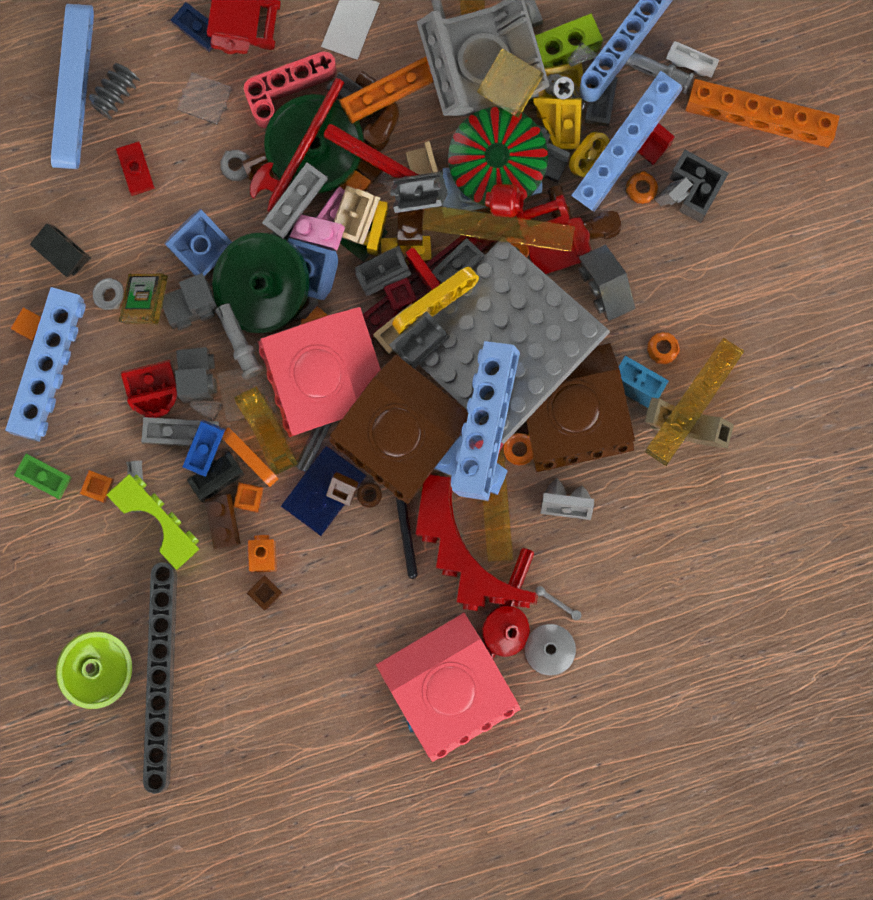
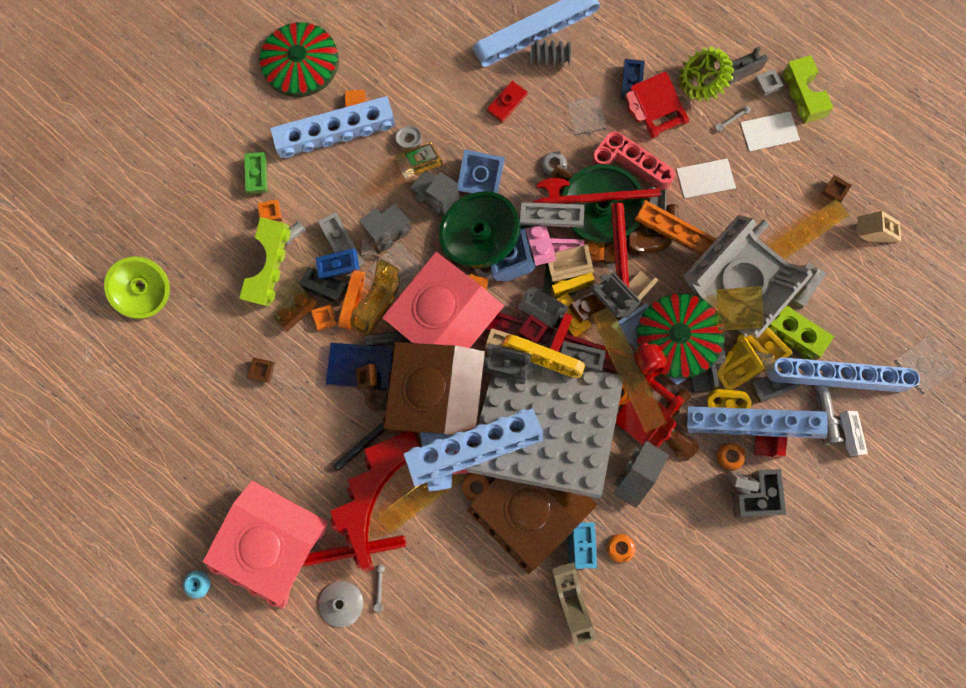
camera: 60 degrees right, 5 degrees down
(60, 250) = (418, 88): pearl dark grey hinge -> none
(151, 388) = (358, 202): red slope -> none
(152, 688) = (149, 337): dark grey beam -> none
(242, 351) = (423, 248): light grey pin -> none
(262, 554) = (287, 351): orange brick -> none
(434, 781) = (203, 584): none -> medium azure plate
(497, 627) = (336, 553): red dish -> none
(556, 502) = (460, 556): light grey tile -> none
(565, 84) = (768, 349): light grey bush -> none
(581, 54) = (798, 347): clear slope -> none
(694, 402) = (592, 598): clear yellow plate -> none
(762, 113) = (850, 513): orange brick -> none

